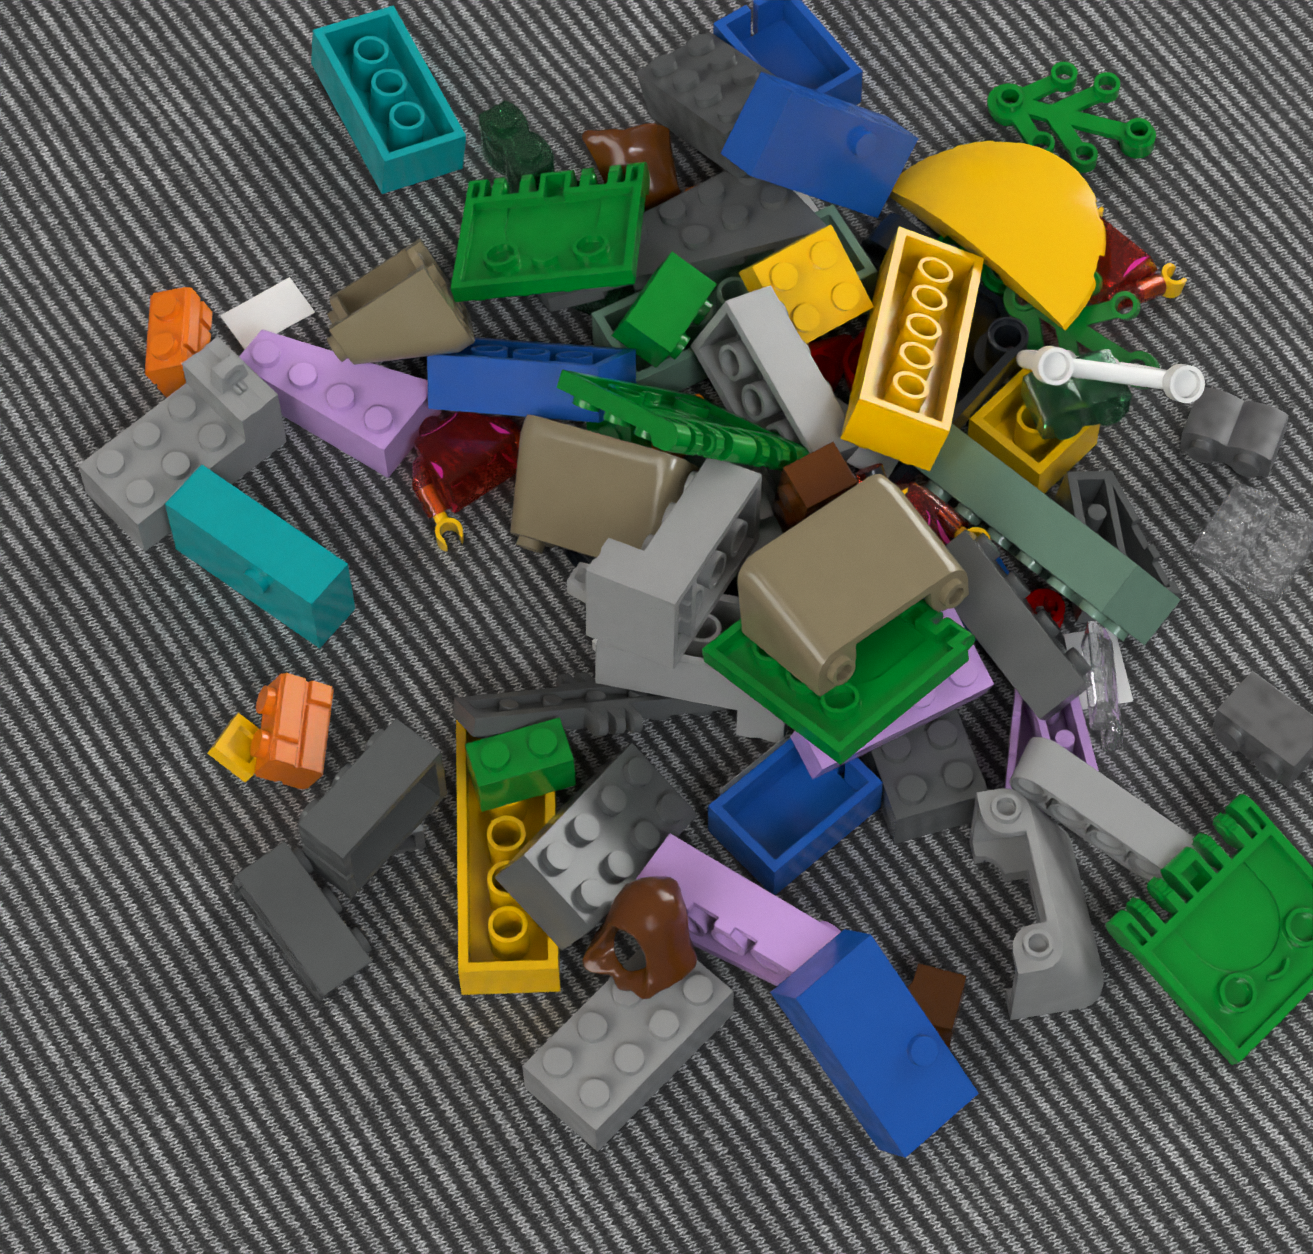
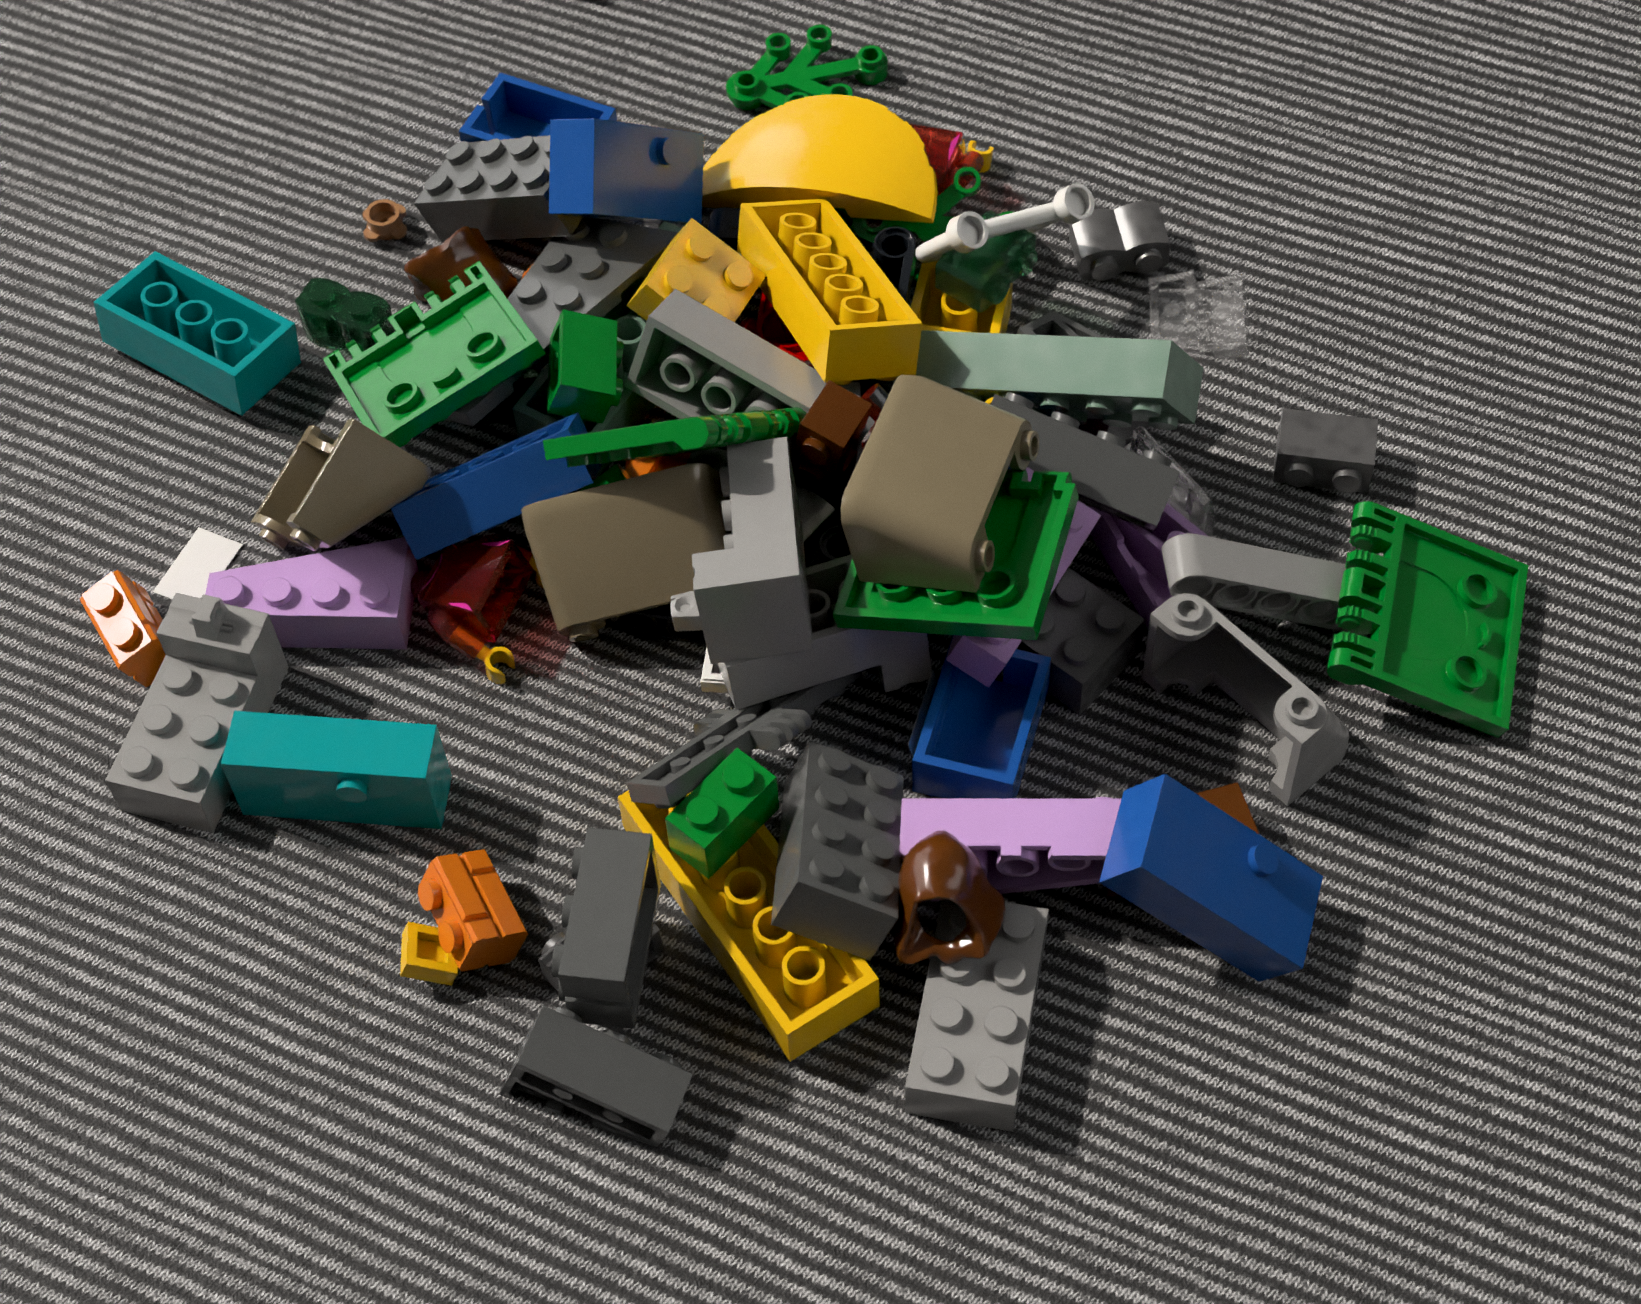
camera: 30 degrees left, 5 degrees down
(610, 61) = (384, 221): none -> medium nougat plate

